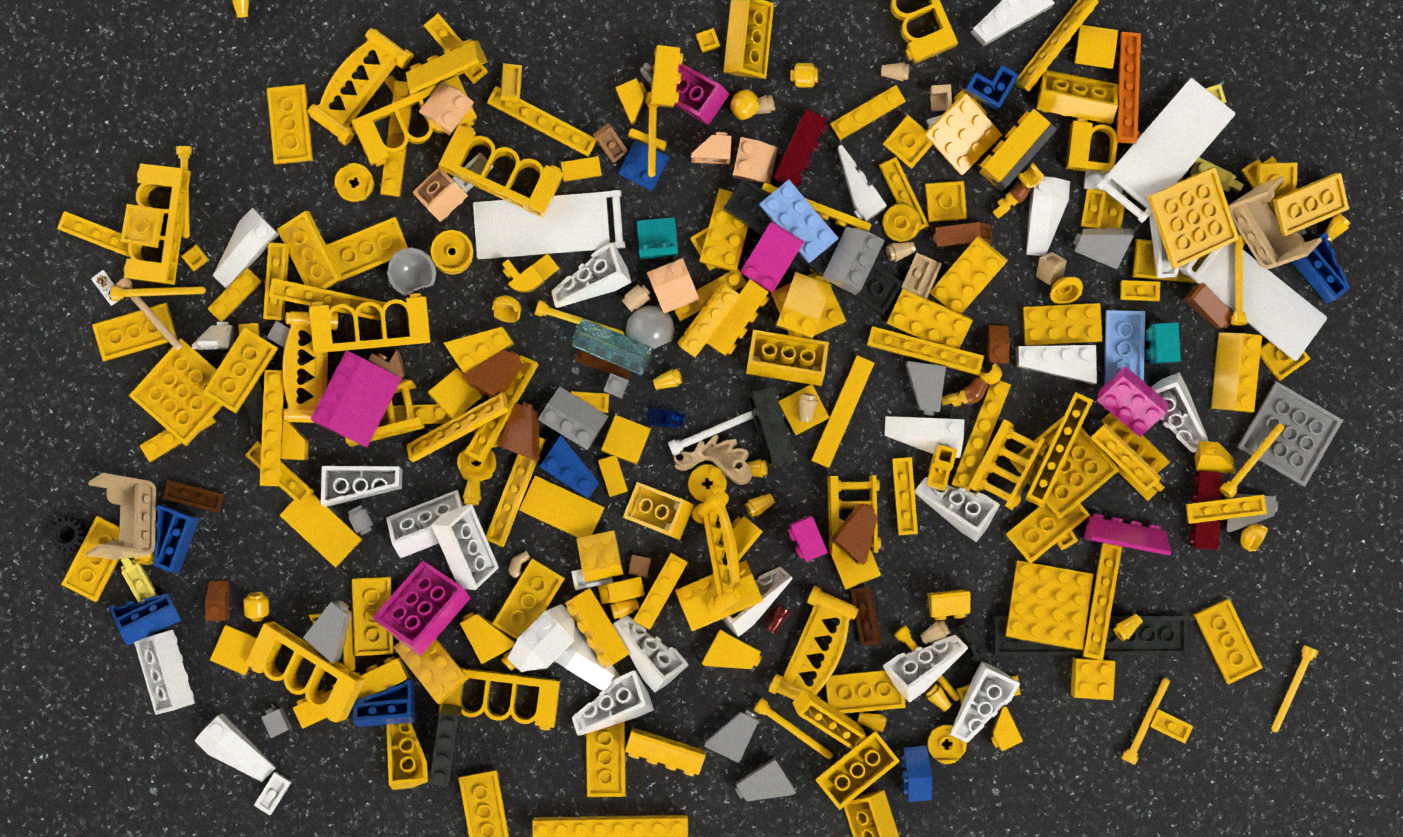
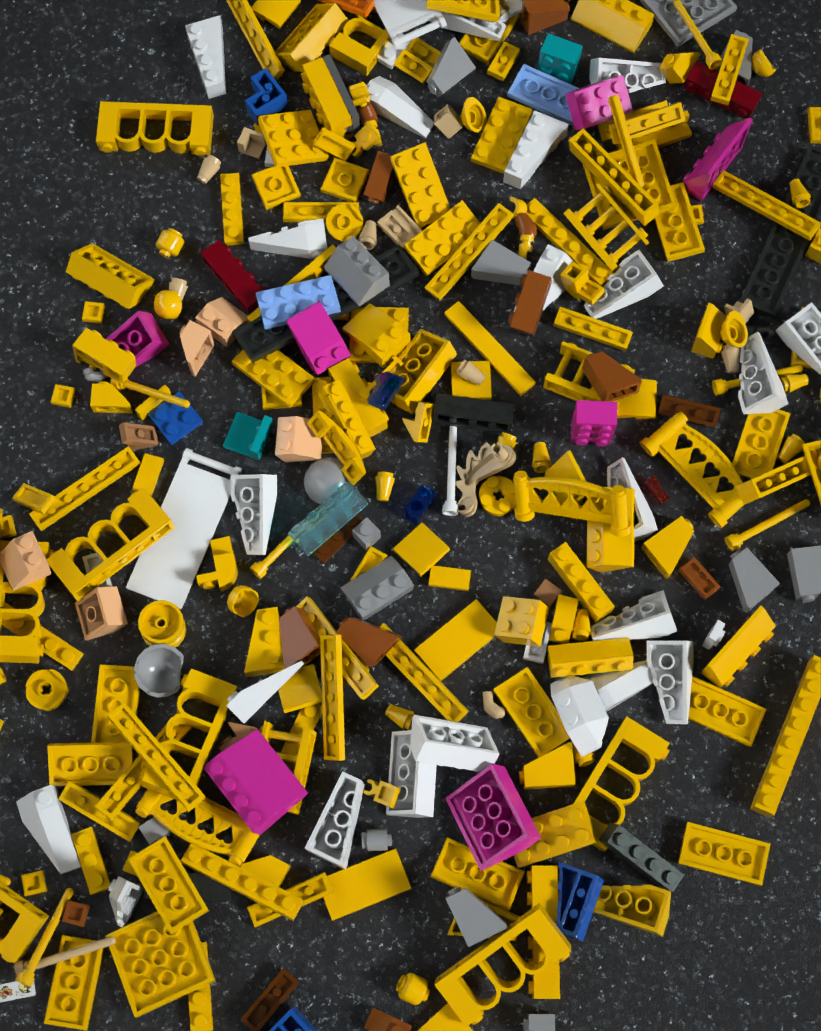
camera: 65 degrees left, 15 degrees down
(187, 305) = (76, 913): none -> dark orange plate
(333, 308) = (156, 756): none -> yellow plate
(401, 509) = (384, 793): none -> yellow plate
(427, 364) = (252, 698): none -> white wedge
(476, 473) = (383, 705): yellow plate -> none
(569, 468) = (423, 612): blue wedge -> none
(617, 55) = (63, 396): none -> yellow tile
(636, 297) = (293, 478): tan brick -> none
(658, 511) = (503, 550): yellow slope -> none
(665, 726) = (715, 635): none -> white plate
(682, 327) = (340, 444): none -> yellow slope
(714, 691) = (699, 578): none -> dark orange plate
(739, 384) = (420, 426): none -> yellow slope
(740, 323) = (365, 393): none -> yellow piece
(749, 340) = (385, 390): none -> clear blue slope
(895, 430) = (530, 303): none -> dark orange brick
(957, 625) = (734, 330): none -> yellow piece
(973, 175) = (334, 144): none -> yellow tile
(983, 621) = (745, 309): none -> tan panel
(994, 201) = (366, 138): none -> yellow plate
(998, 345) = (494, 191): dark orange slope -> none
(1049, 605) = (750, 250): yellow plate -> none
(1093, 448) = (625, 139): none -> yellow axle

